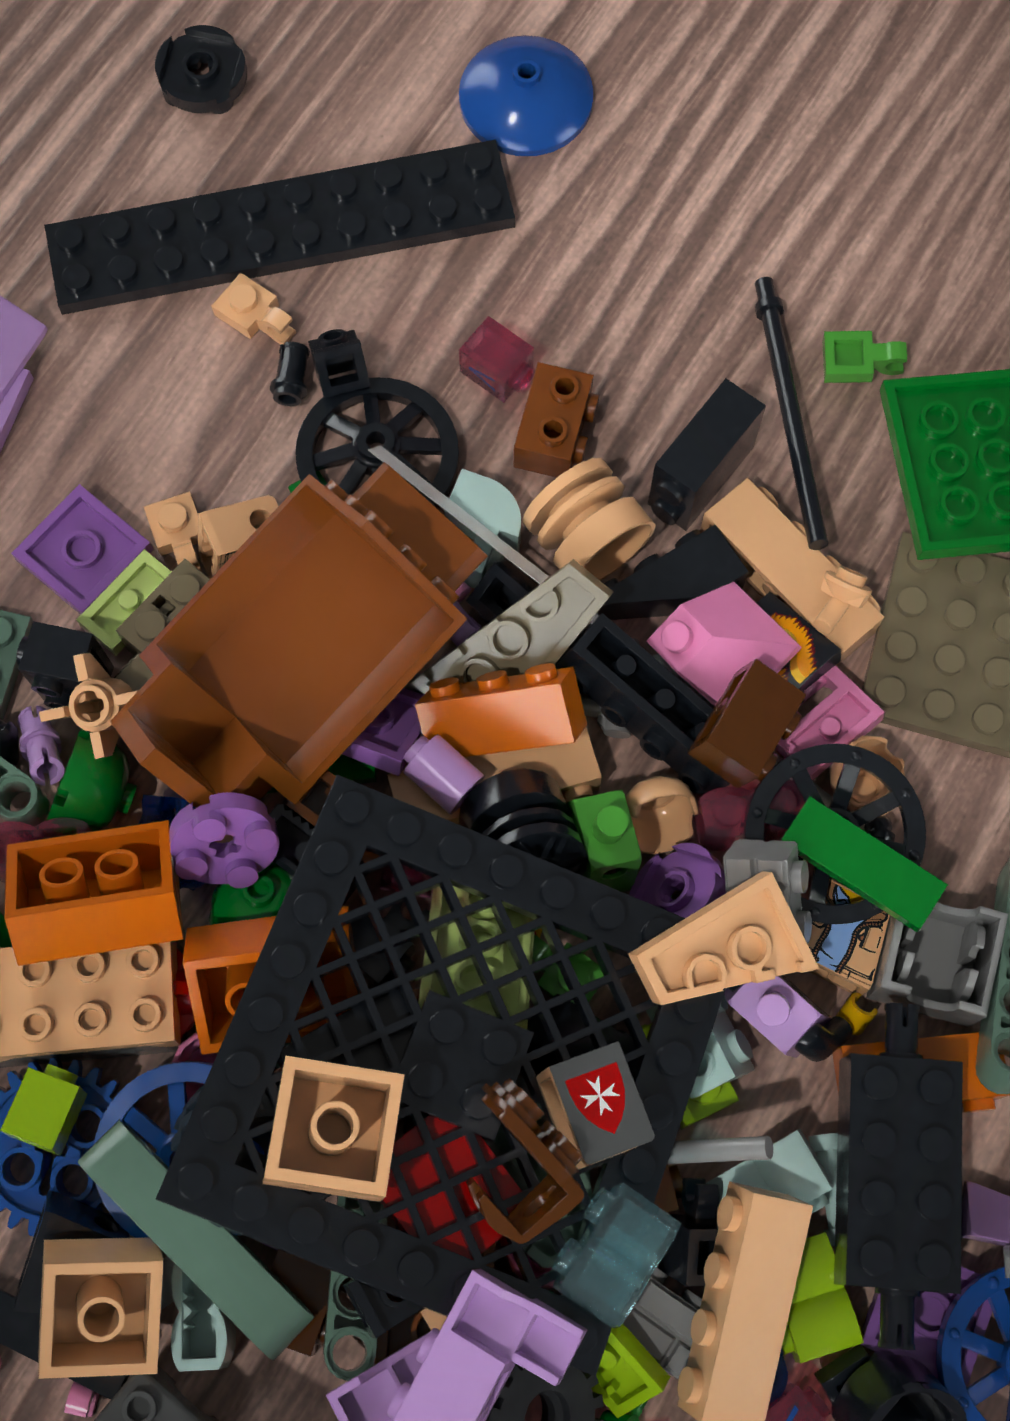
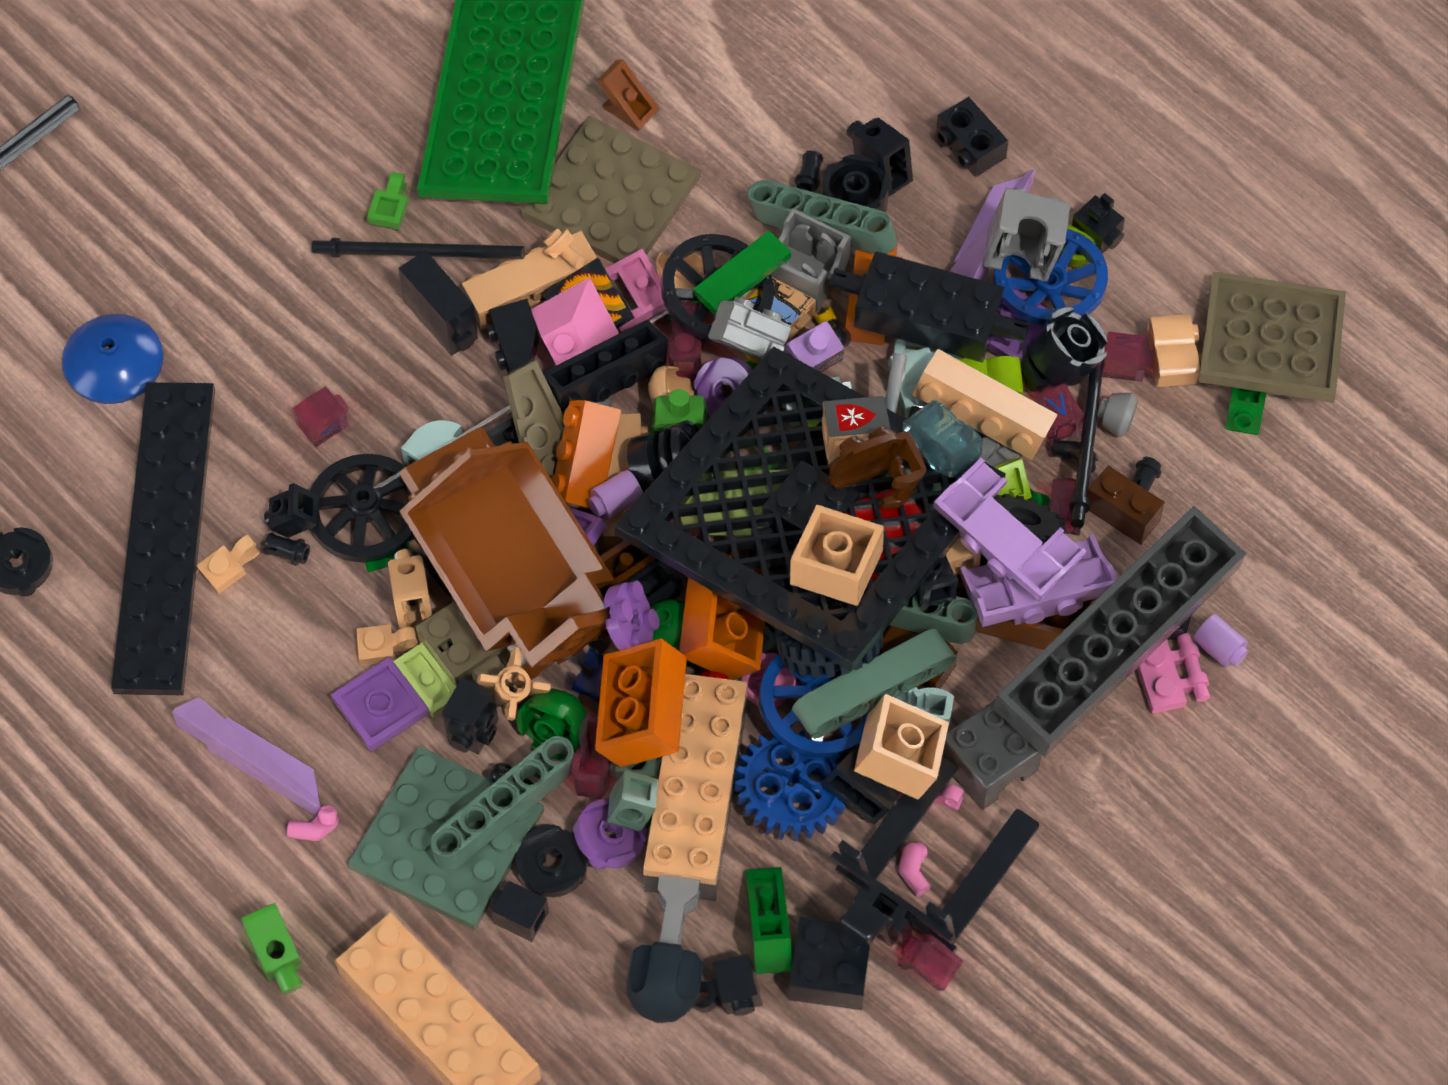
camera: 75 degrees left, 10 degrees down
(40, 747) = (519, 743): lavender pin -> none
(45, 1109) = (772, 765): lime brick -> none
(554, 420) = (379, 391): dark orange brick -> none
(588, 519) = (464, 381): light nougat wheel -> none
(725, 944) = (776, 346): light nougat wing -> none
(748, 725) = (635, 314): reddish brown brick -> none

